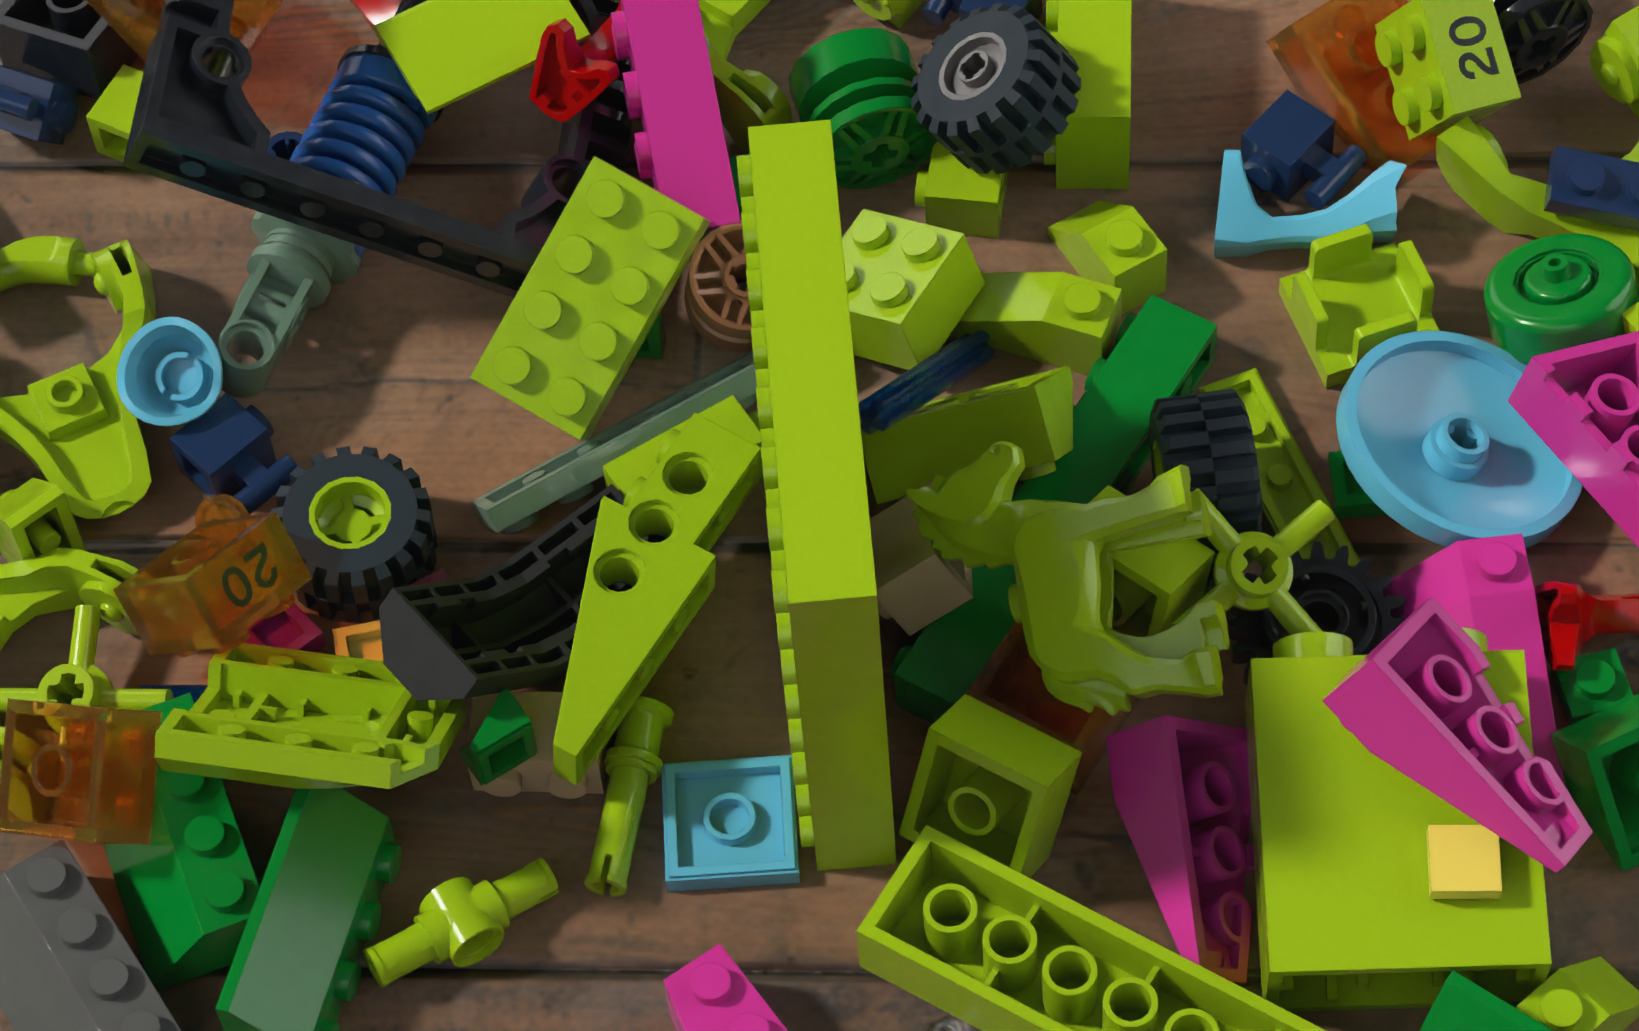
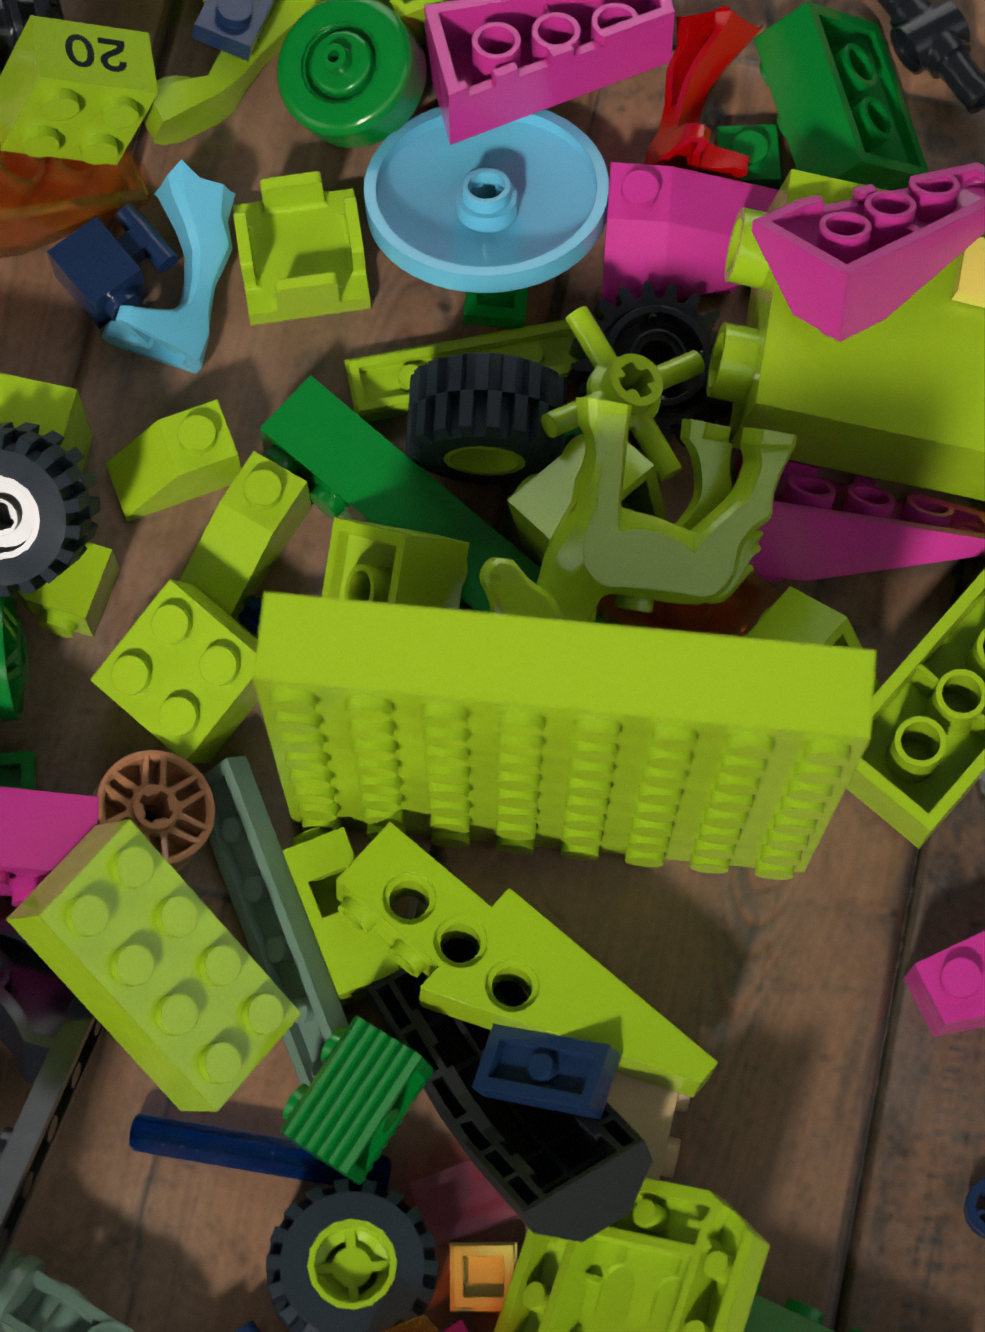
camera: 85 degrees left, 15 degrees up
(455, 456) = (239, 1150): none -> clear blue axle
(461, 922) = (818, 1220): lime pin -> none
(497, 481) = (355, 1098): none -> green brick
(501, 742) = (666, 1143): green slope -> none
(543, 620) = (547, 1071): none -> dark blue plate
(631, 767) = (728, 1045): lime pin -> none
(730, 823) = (744, 944): medium azure tile -> none

